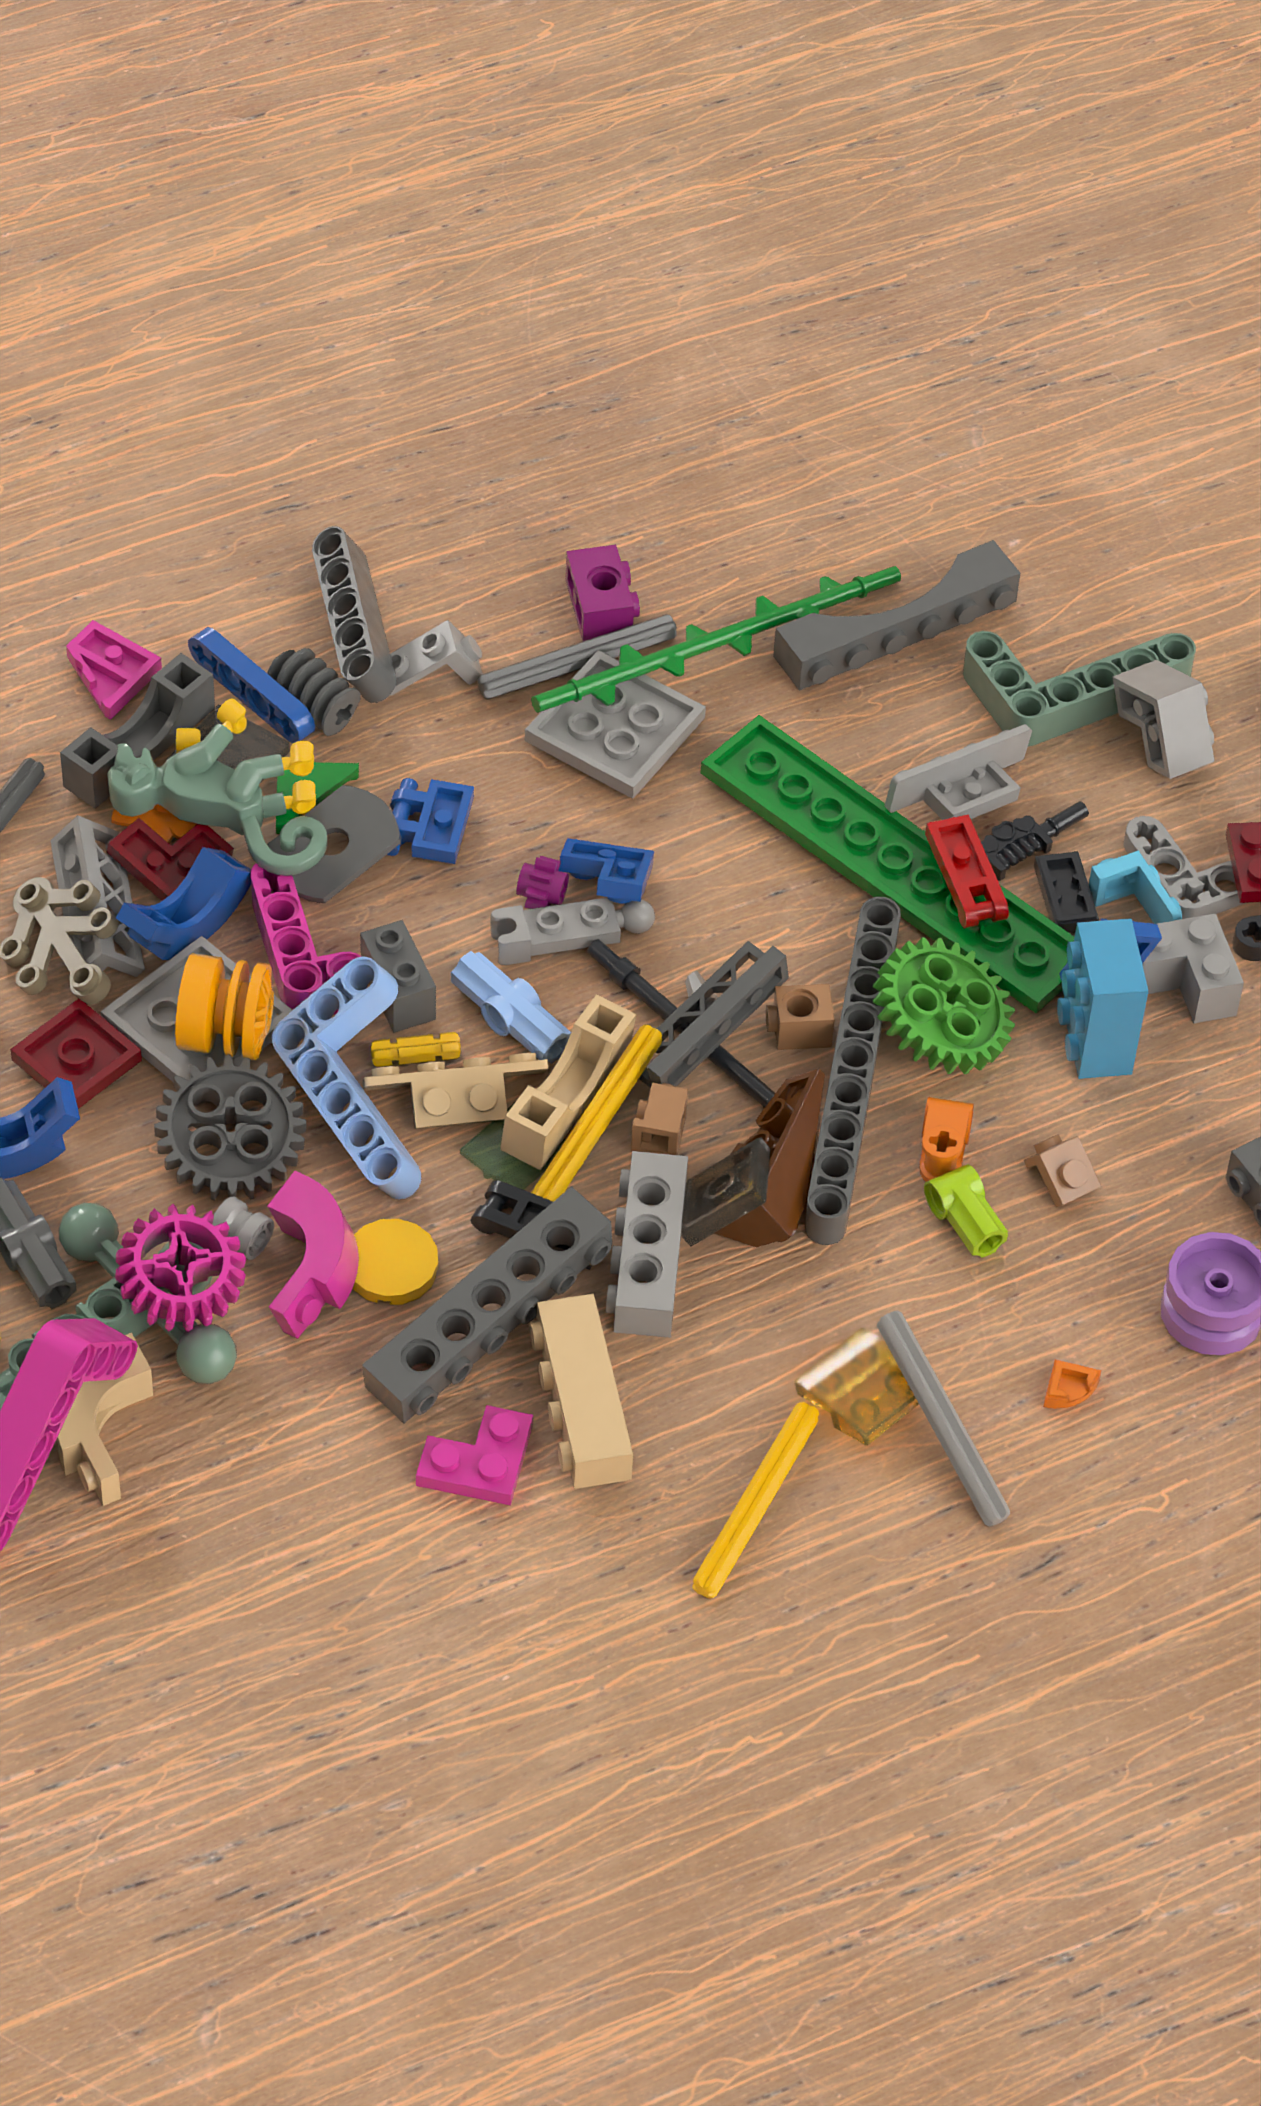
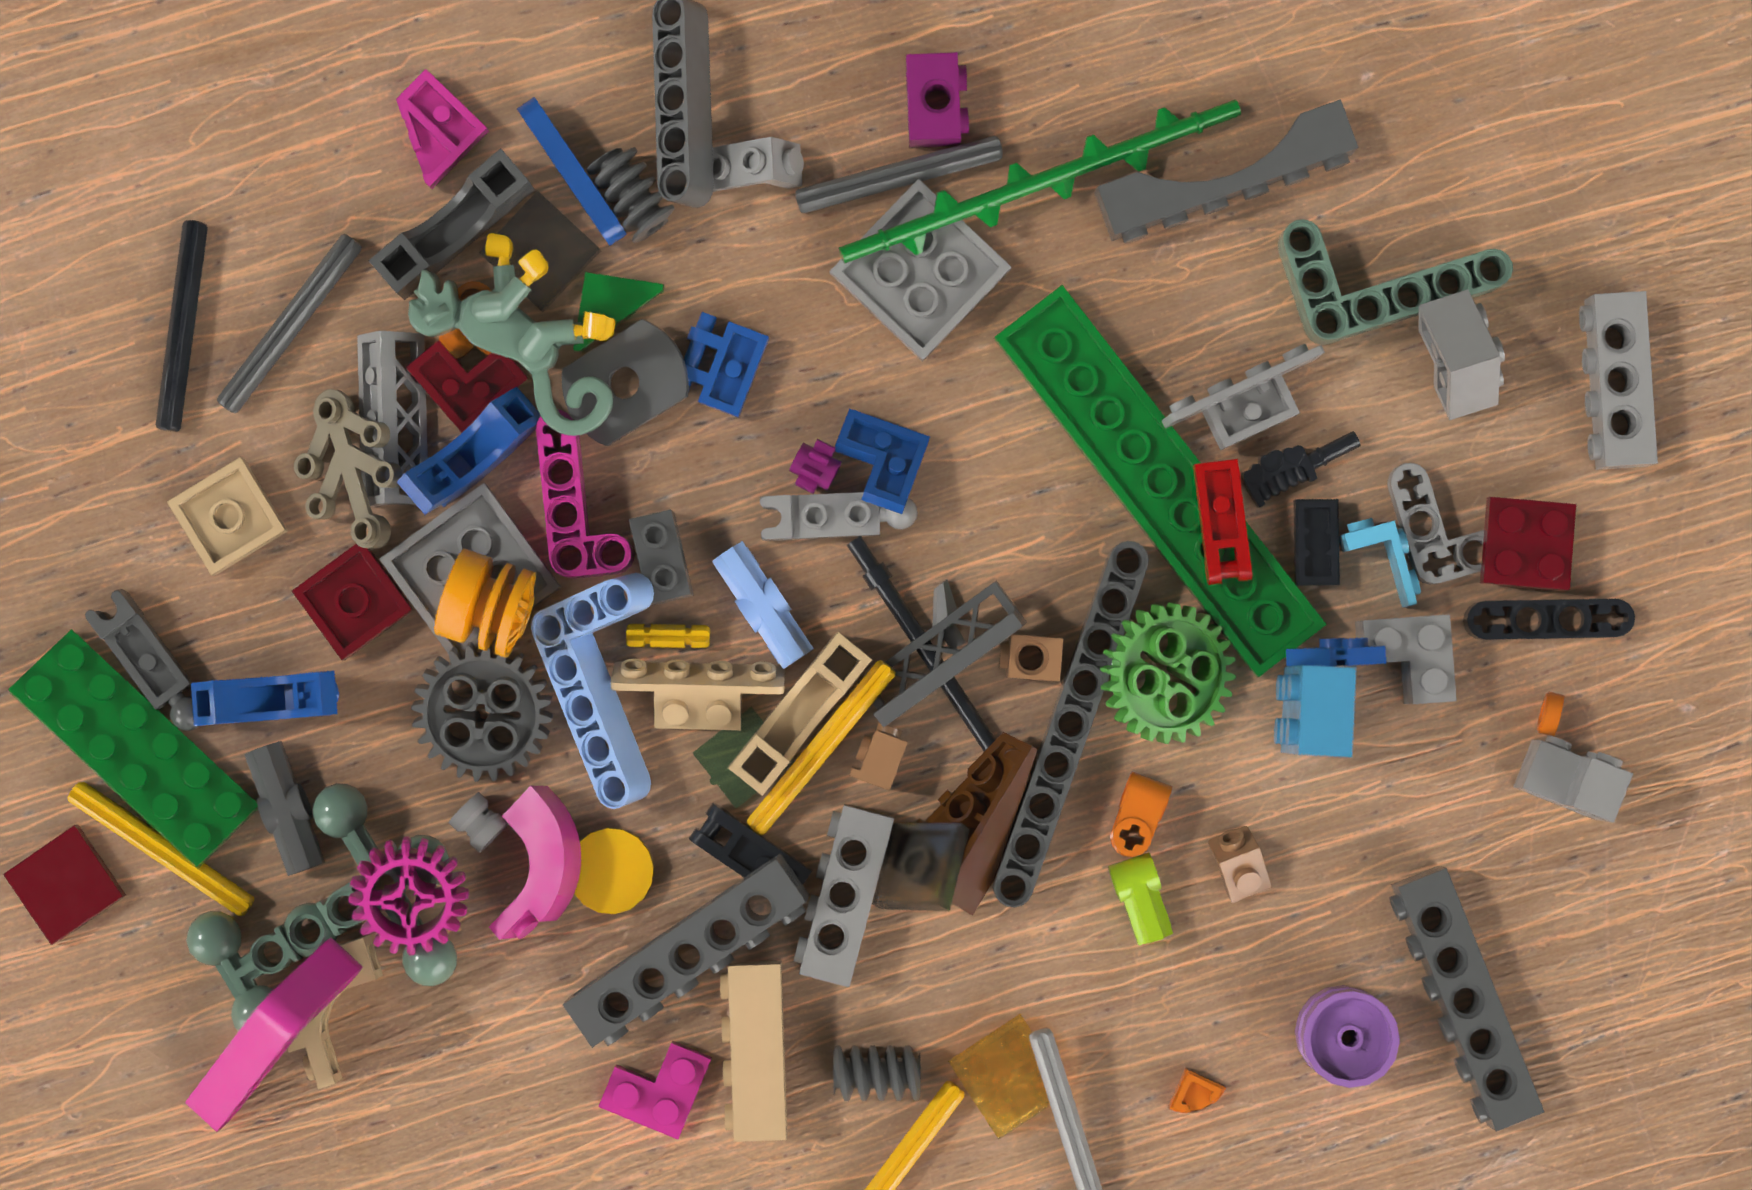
camera: 15 degrees right, 35 degrees up
(718, 1396) = (876, 1073): none -> dark grey piece

